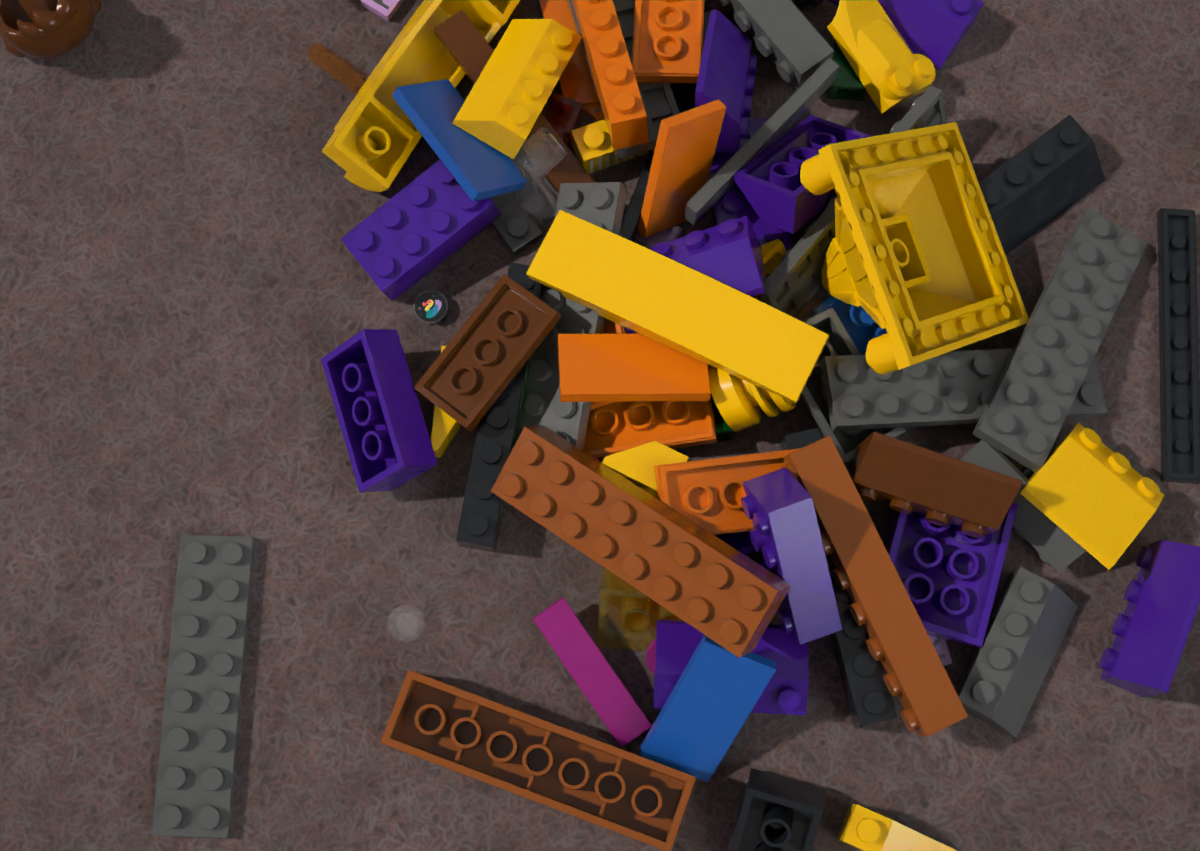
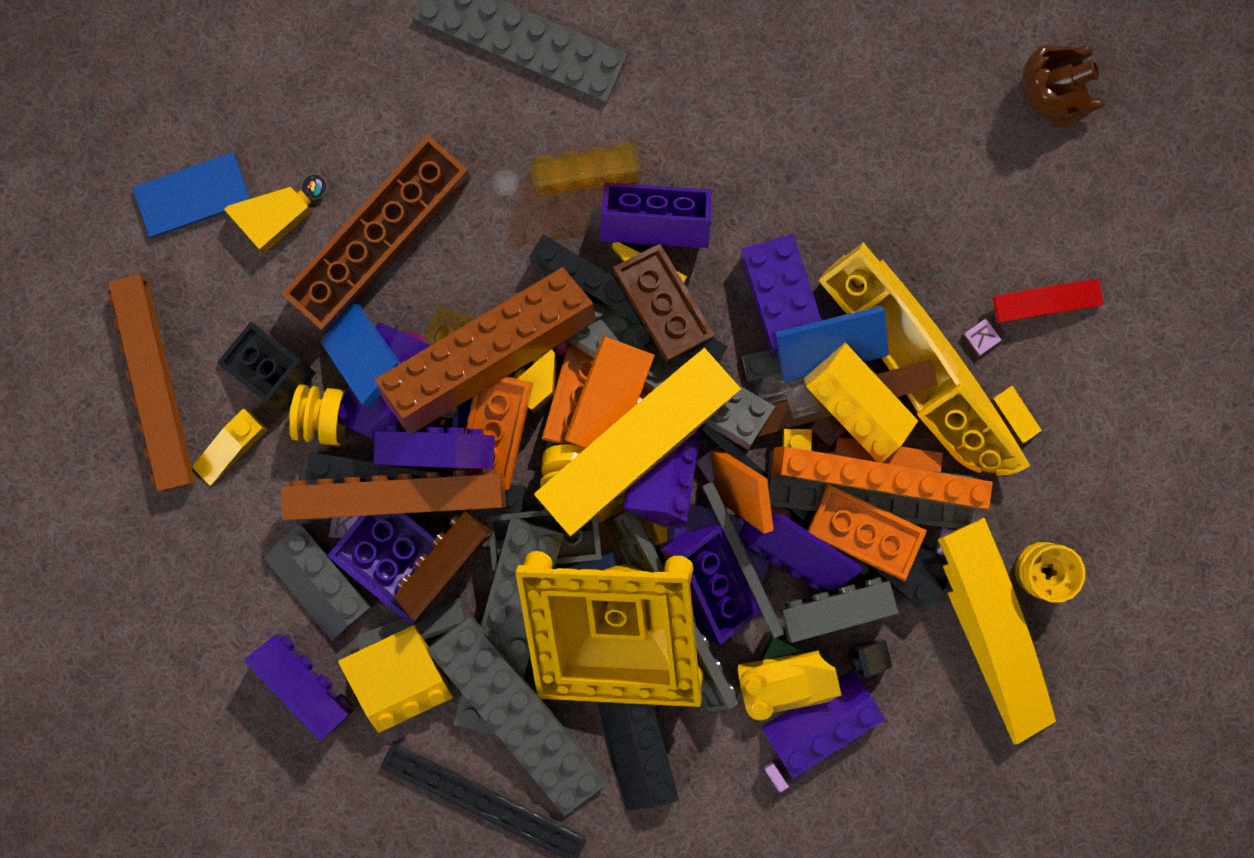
camera: 110 degrees right, 10 degrees up
(336, 68) = (937, 282): clear orange axle -> none
(351, 524) = (585, 170): none -> clear yellow slope
(431, 308) = (723, 282): tile -> none
(592, 672) = (421, 292): magenta slope -> none
(807, 736) = (314, 414): none -> yellow wheel
(987, 29) = (775, 776): none -> lavender tile

